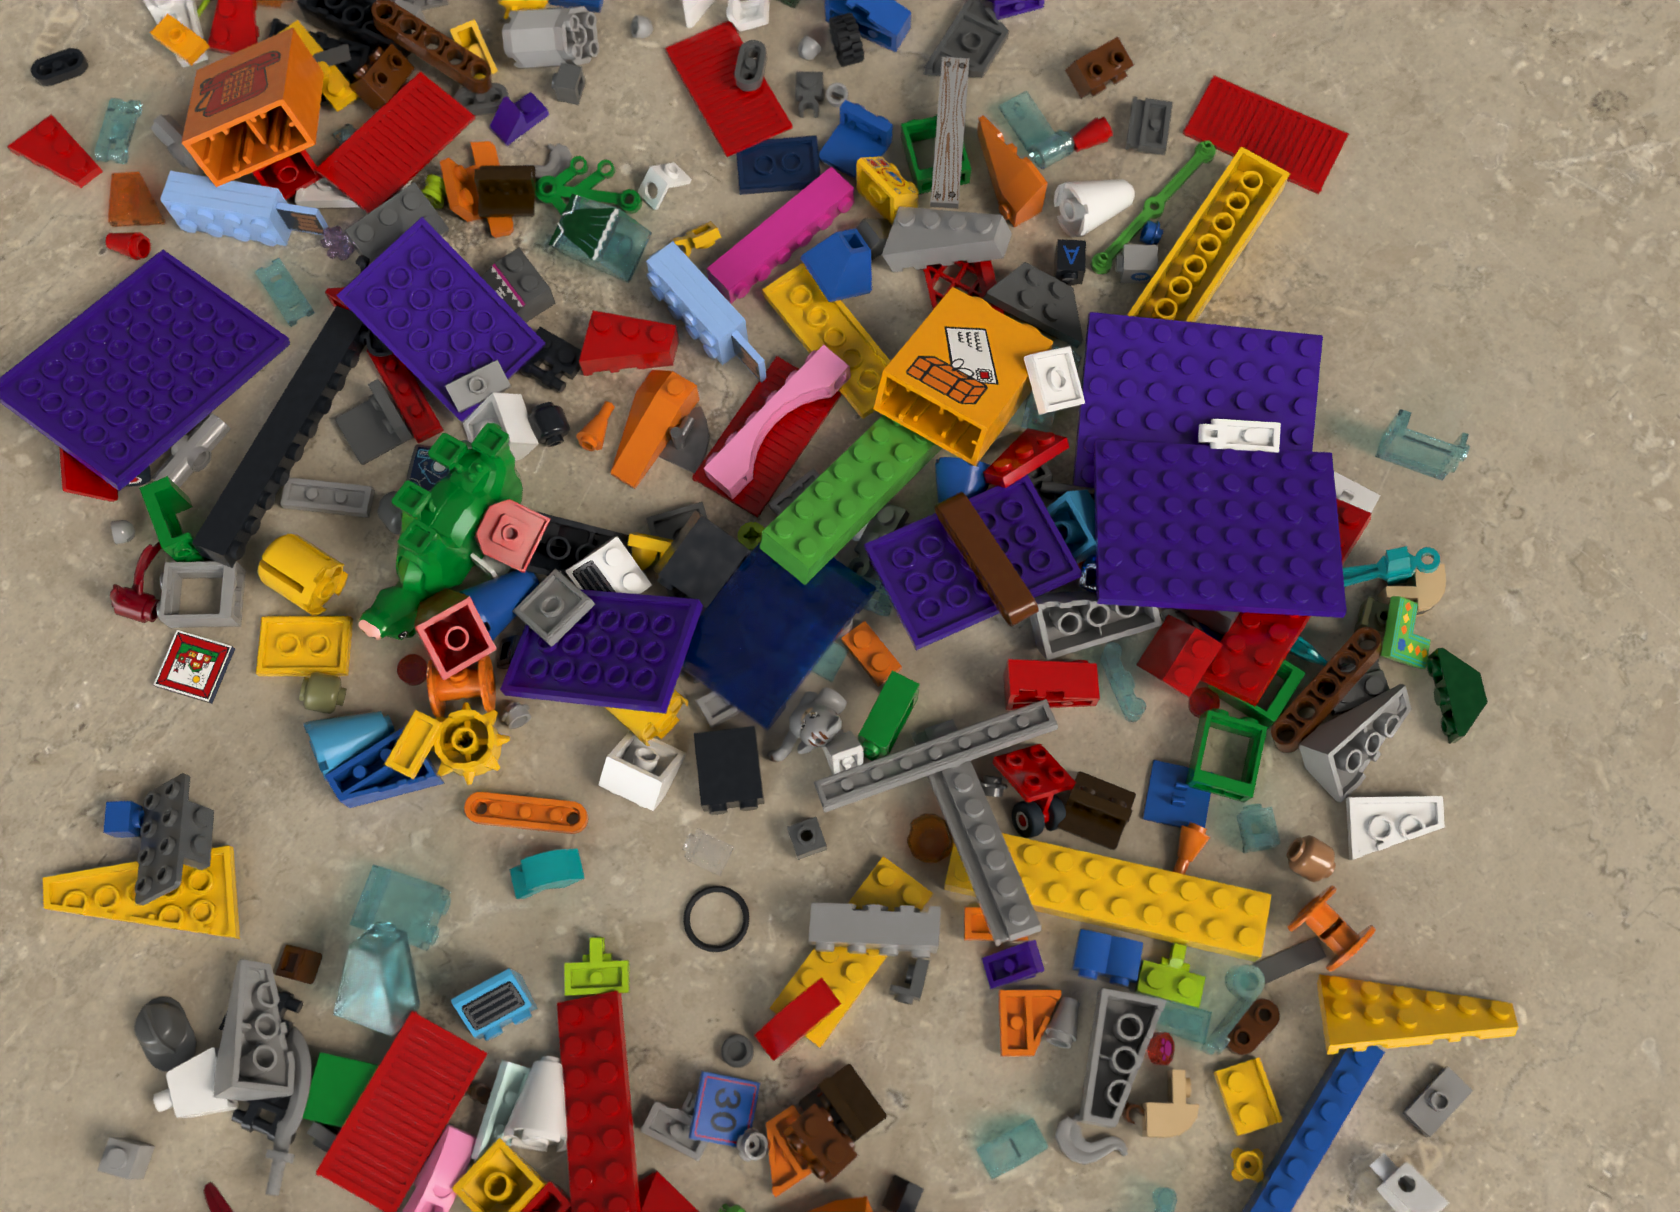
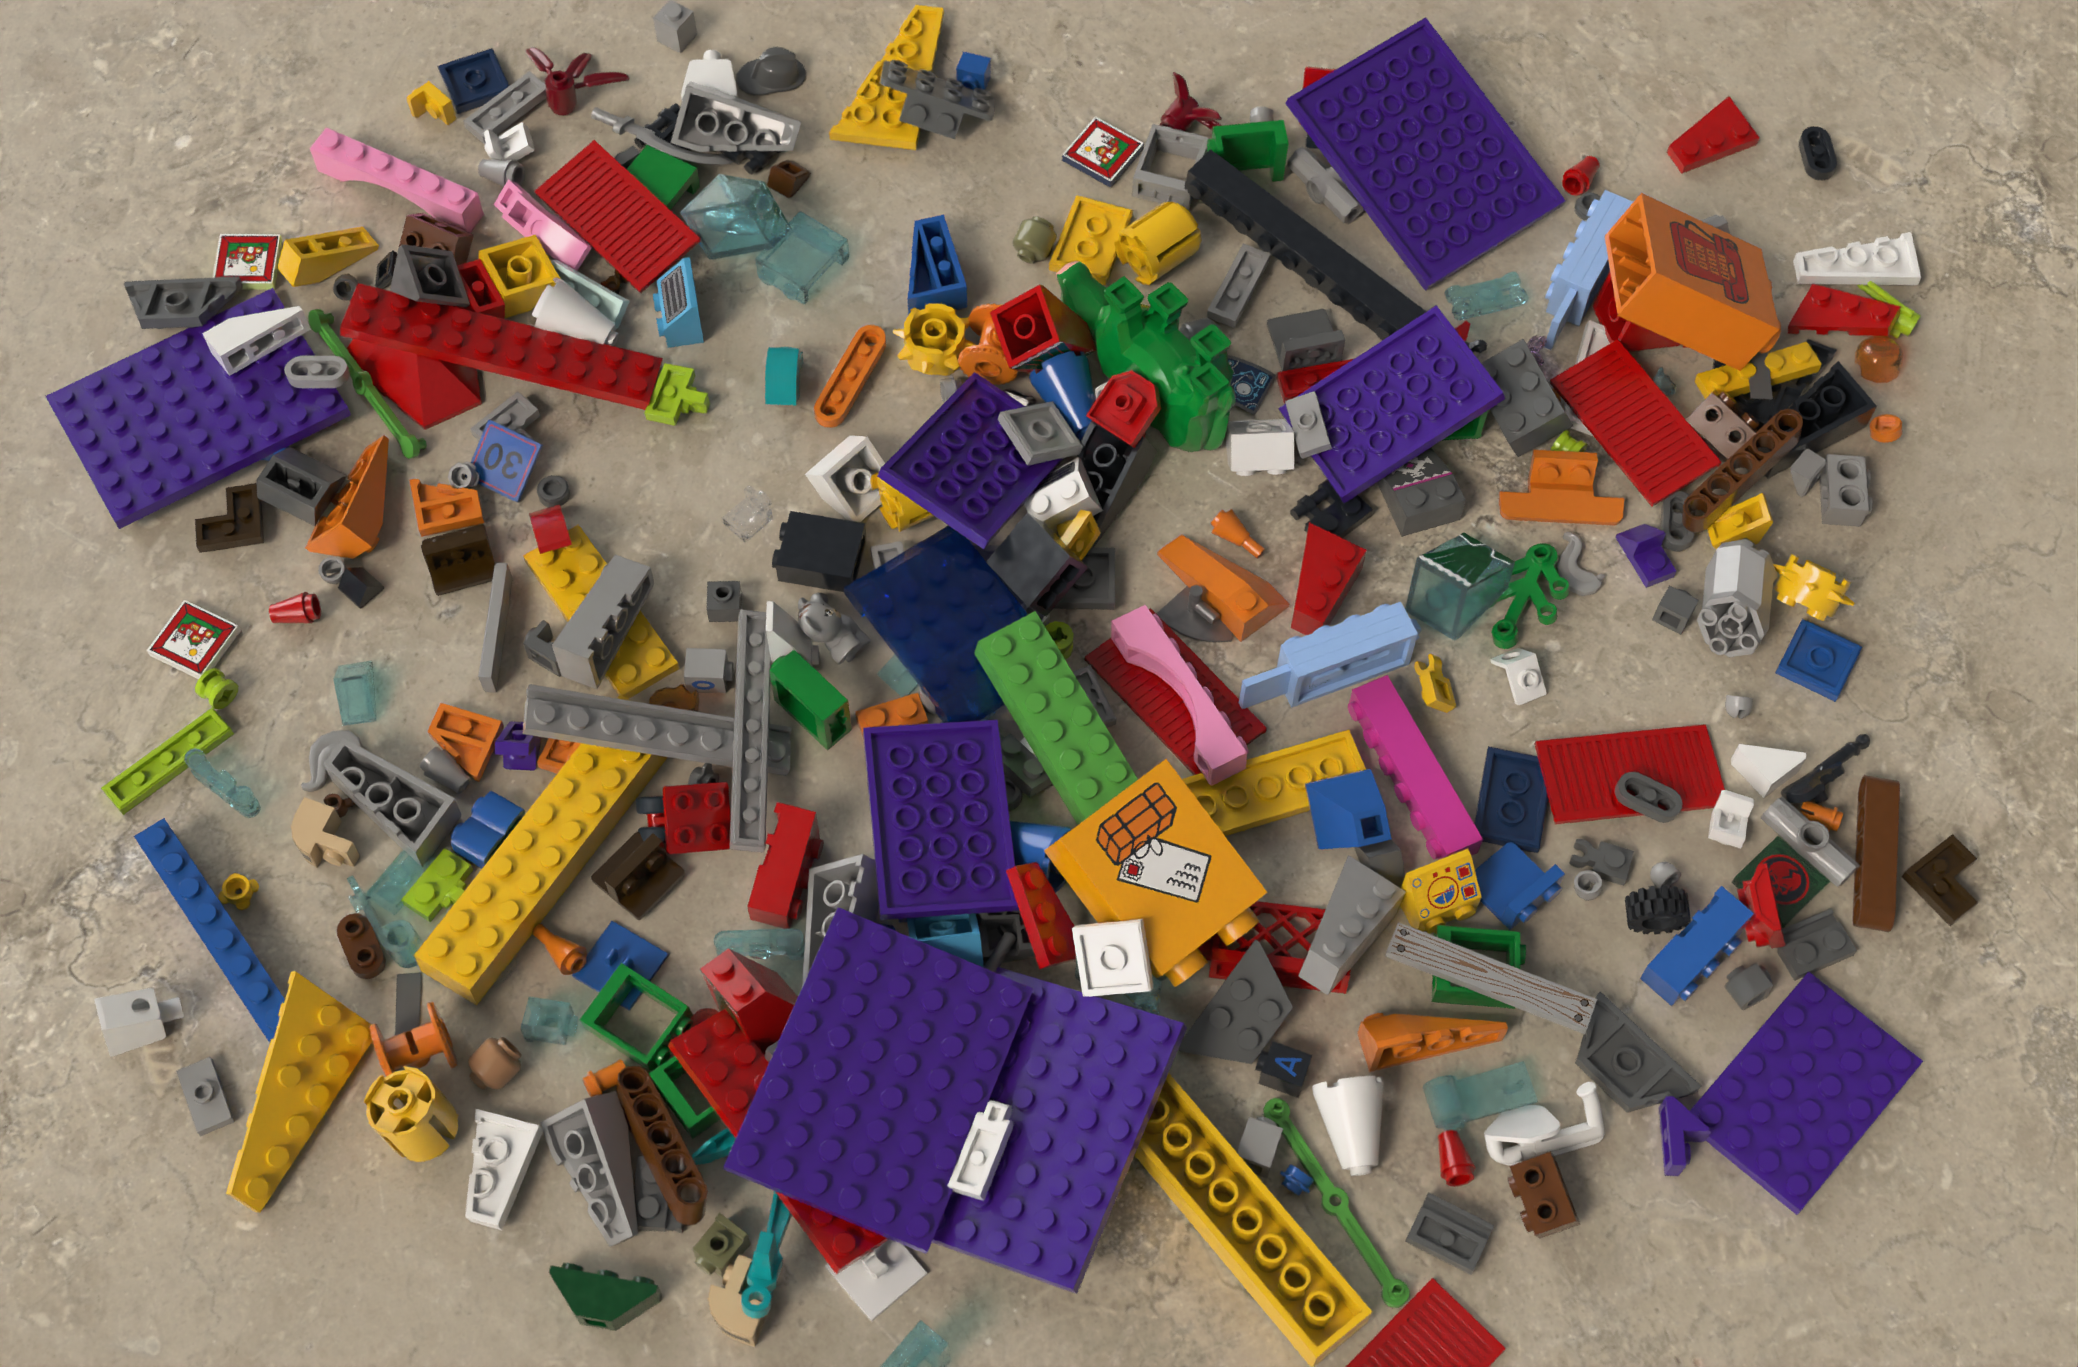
camera: 105 degrees right, 10 degrees down
(117, 130) = (1725, 189): clear light blue plate -> none
(132, 202) = (1632, 181): clear orange wing -> none
(163, 231) = (1583, 204): none -> dark grey plate
(179, 39) = (1821, 255): light orange plate -> none
(345, 737) = (978, 243): dark azure cone -> none
(414, 744) = (943, 286): yellow tile -> none
(506, 190) = (1548, 512): dark brown bracket -> none
(549, 423) = (1253, 488): black head -> none
(737, 939) = (713, 508): black tyre -> none
(820, 1143) = (433, 517): reddish brown brick -> none
(883, 824) = (707, 670): none -> light grey brick
(905, 1039) = (495, 627): none -> light grey tile
(986, 559) = (929, 818): reddish brown beam -> none
(1052, 87) = (1541, 1132): none -> white piece
(1161, 1048) = (379, 848): clear red tile -> none
(1247, 1096) = (299, 917): yellow plate -> none
(1283, 764) = (603, 1079): none -> orange pin
(1382, 886) = (407, 1111): none -> yellow cylinder
(1399, 640) = (682, 1247): bright green tile -> none

